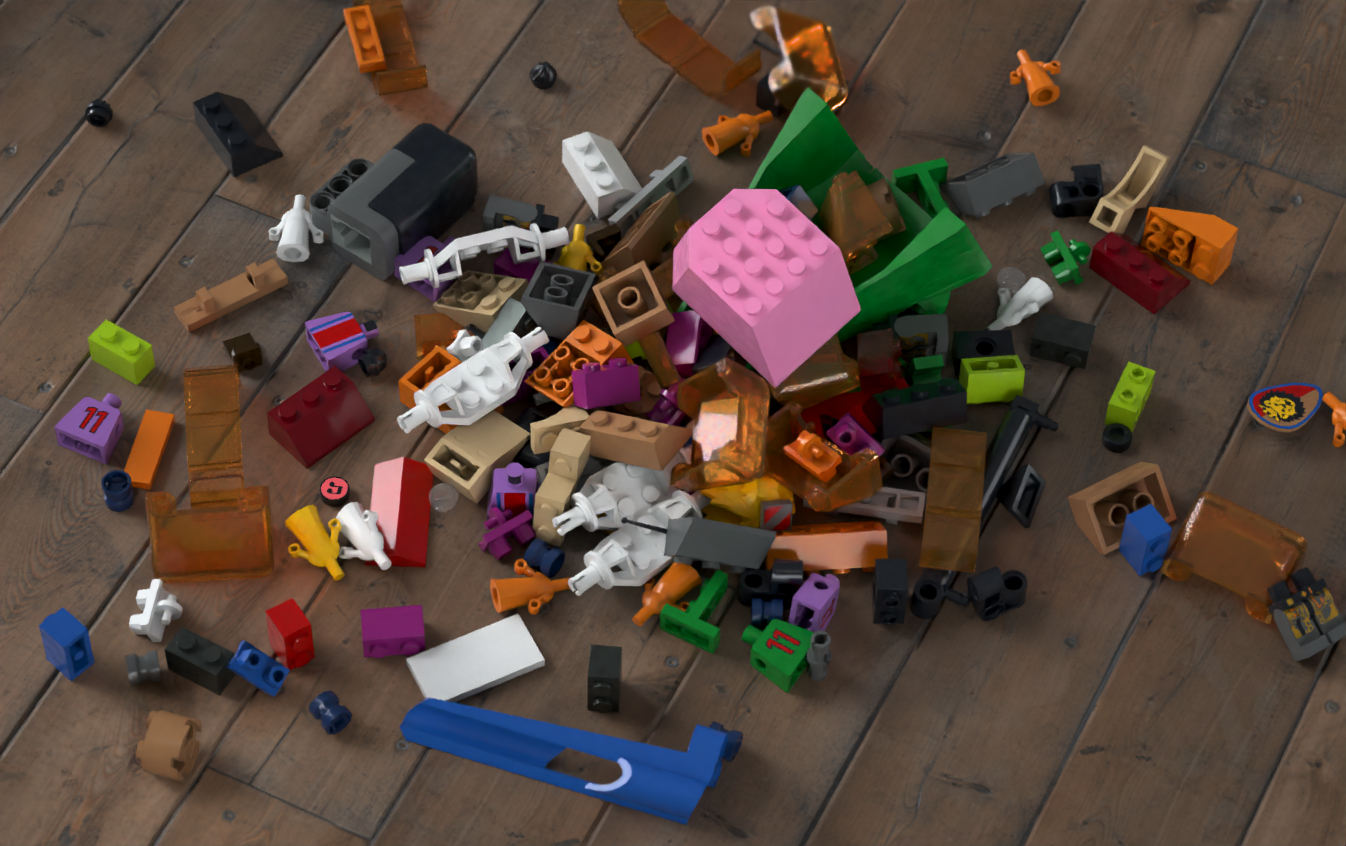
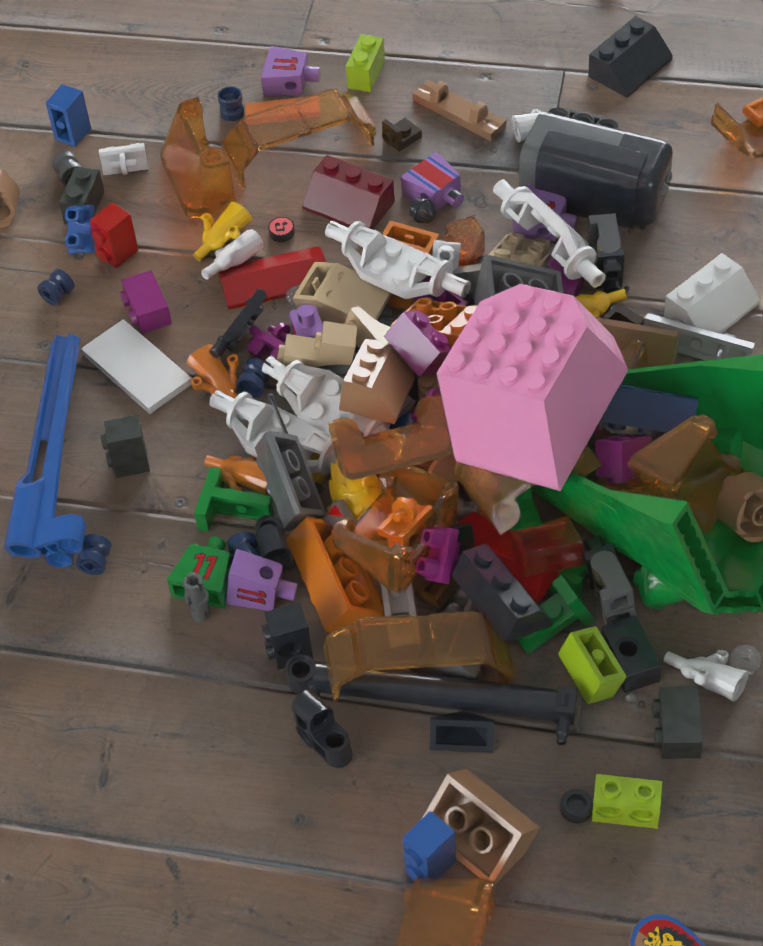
camera: 80 degrees right, 0 degrees up
(476, 546) = (240, 325): none -> black plate

